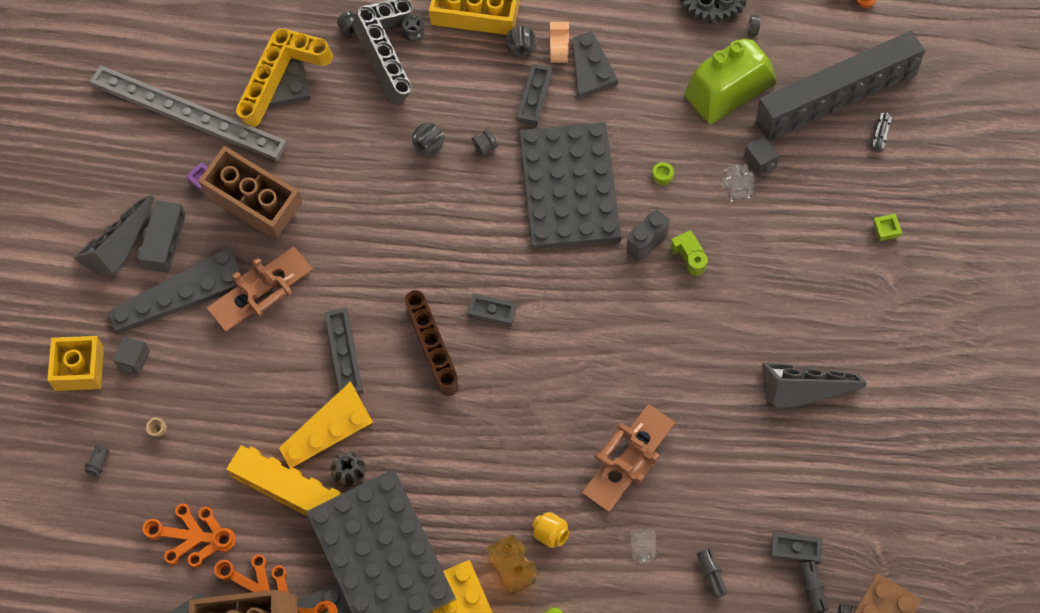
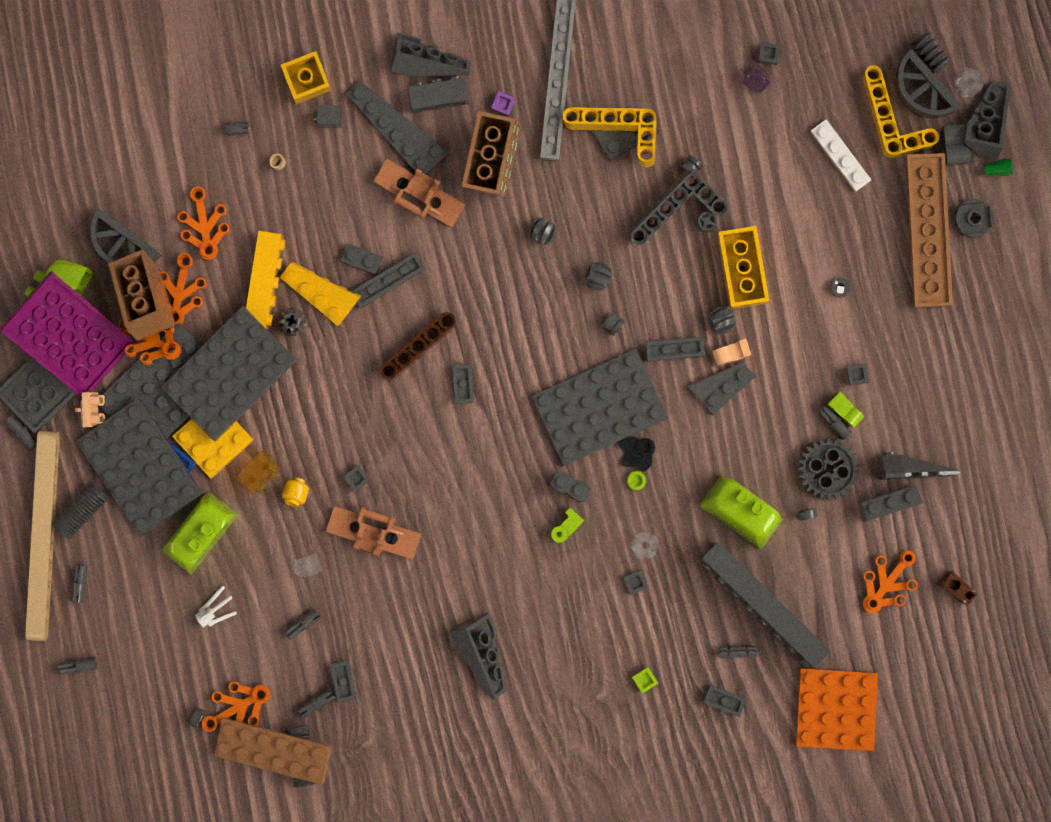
camera: 70 degrees right, 20 degrees up
(307, 374) = (361, 259): none -> dark grey plate
(356, 178) = (542, 231): none -> dark grey piece
(558, 456) = (356, 478): none -> dark grey plate
(633, 165) = (635, 454): none -> black plate
(761, 156) = (677, 558): dark grey brick -> none
(774, 206) = (635, 582): none -> dark grey tile
(932, 158) = (724, 701): none -> dark grey plate
(970, 61) = (836, 709): none -> orange plate

